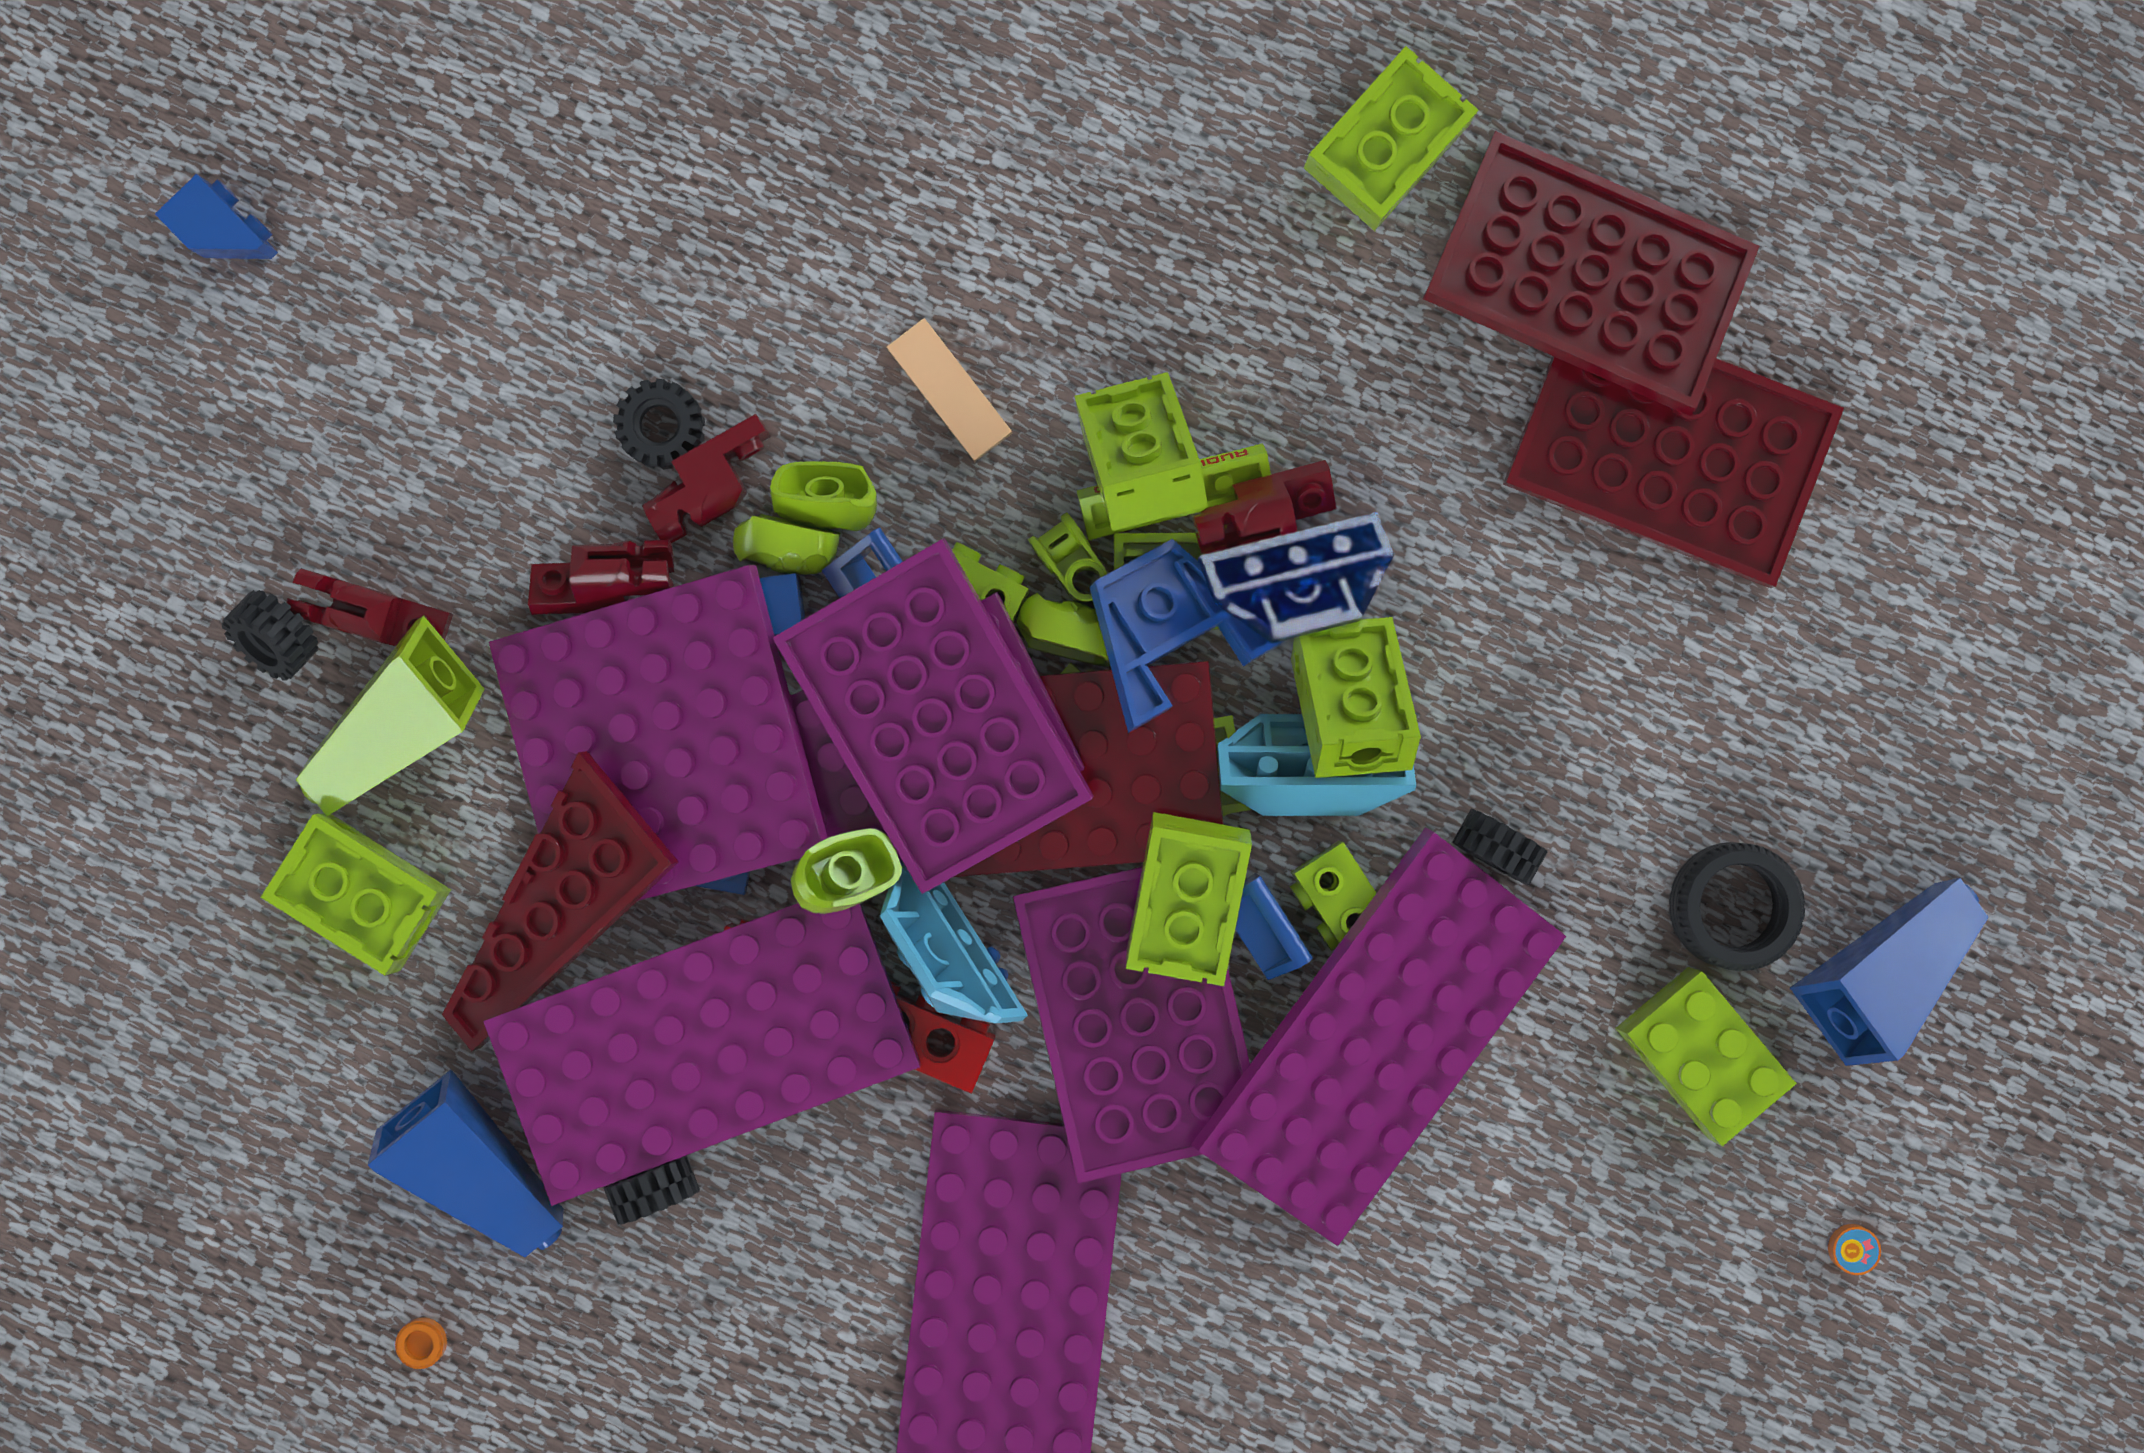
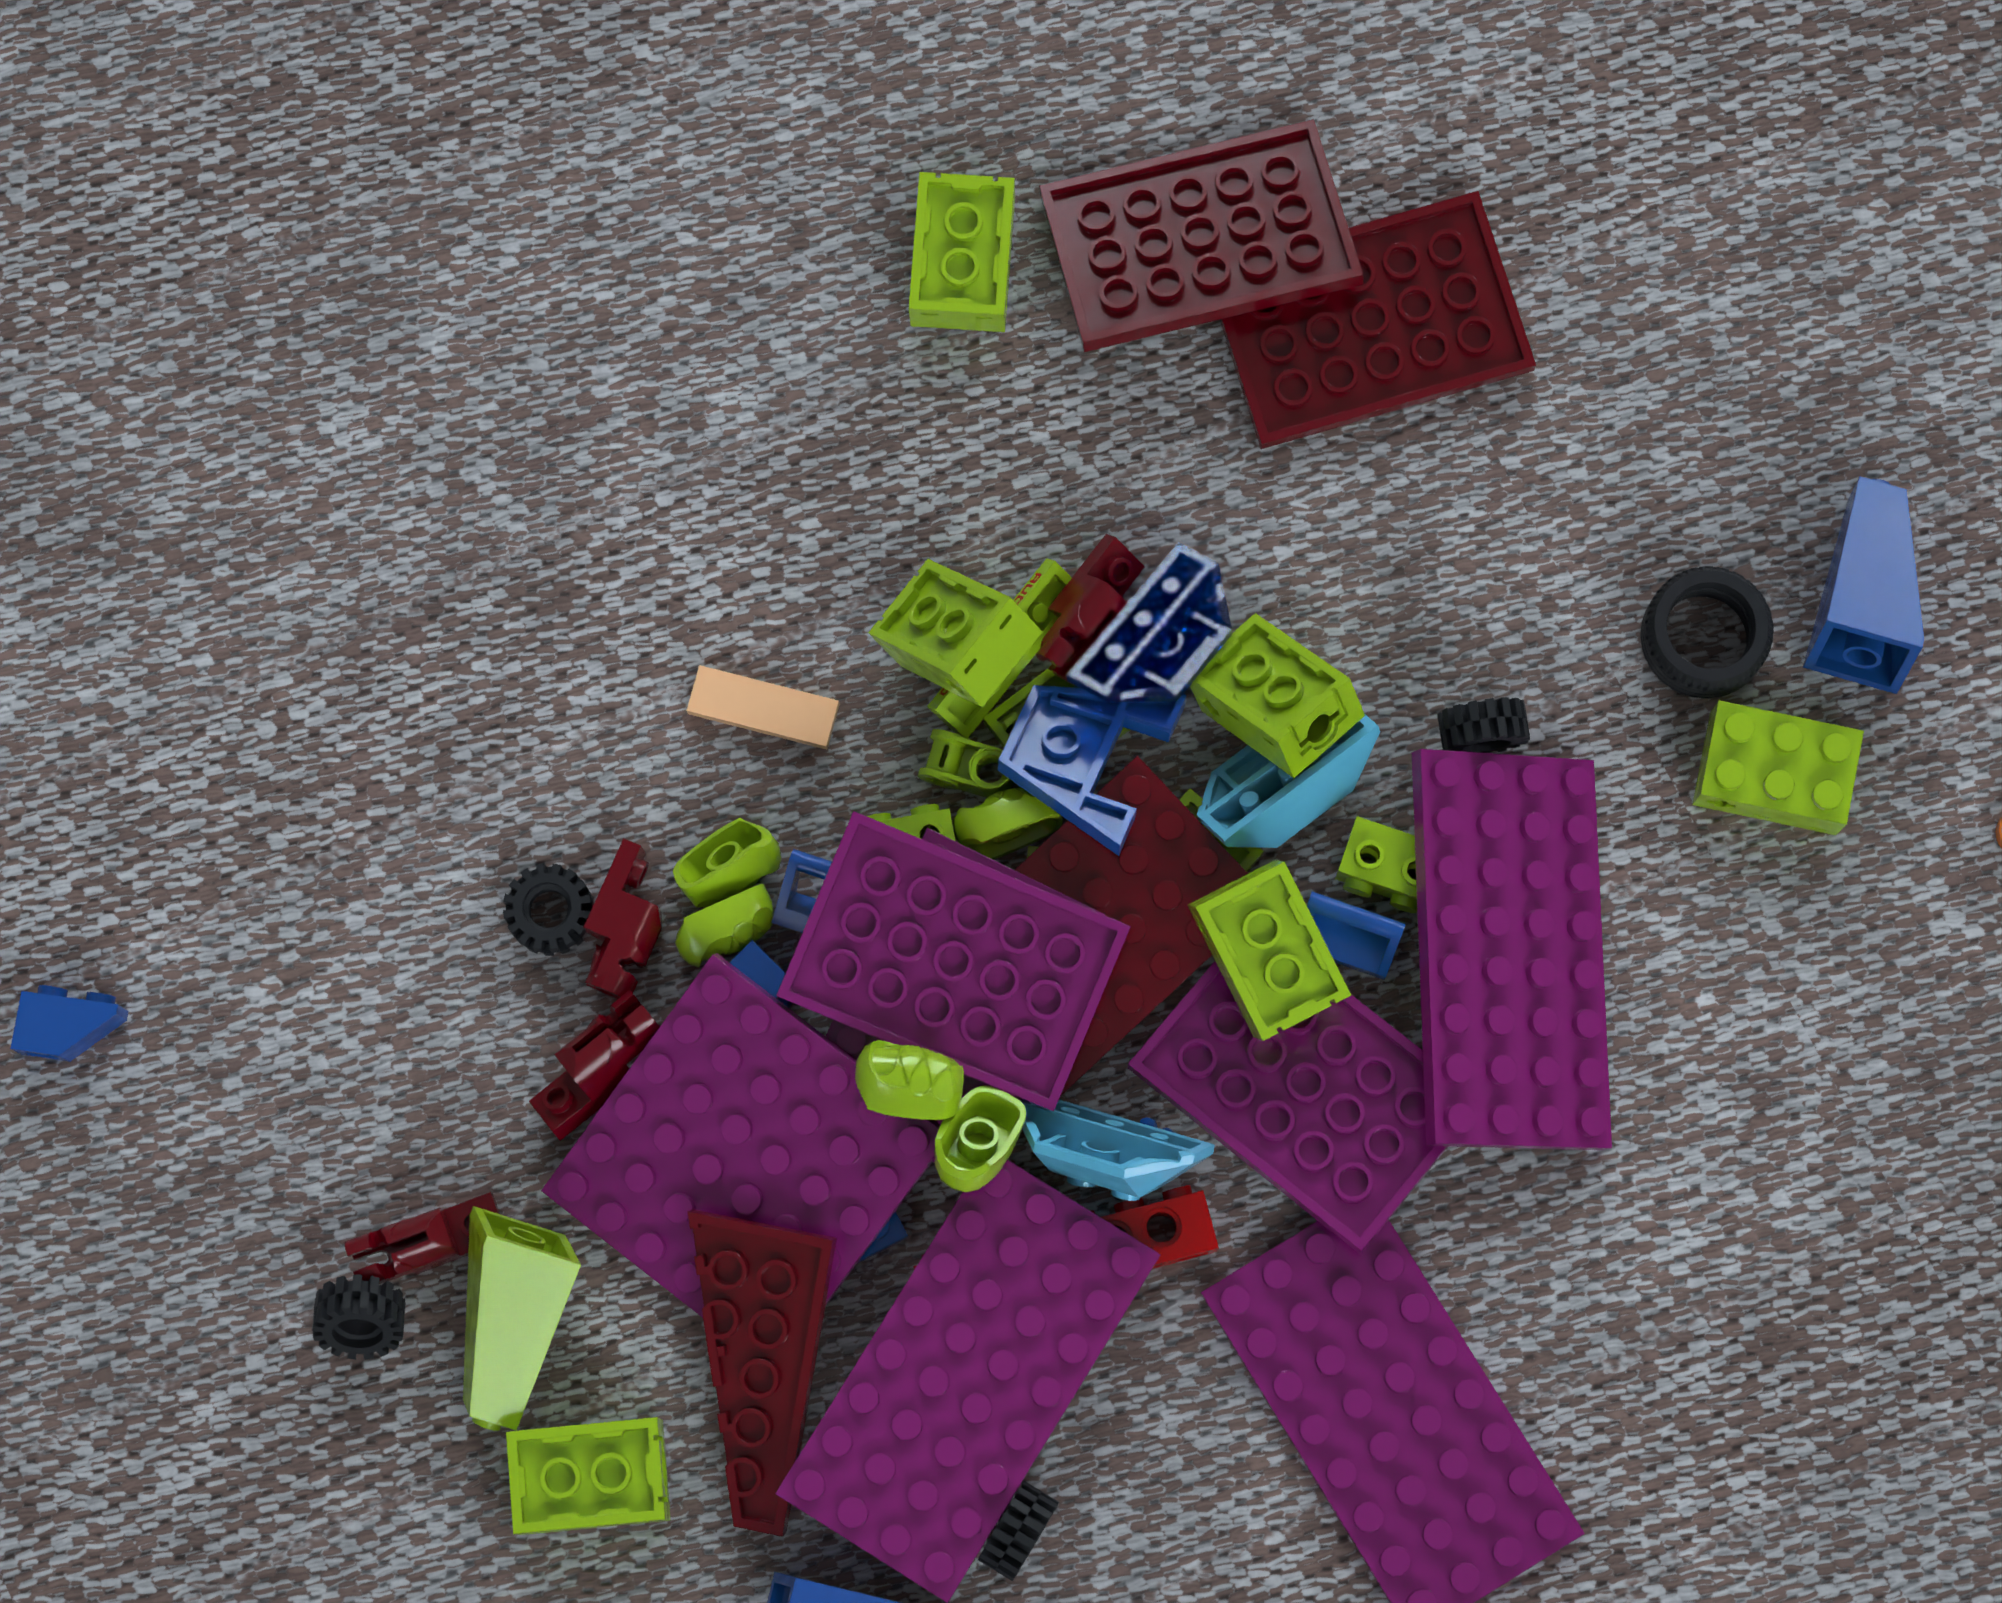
camera: 30 degrees left, 10 degrees down
(822, 787) = (909, 1081): none -> lime piece

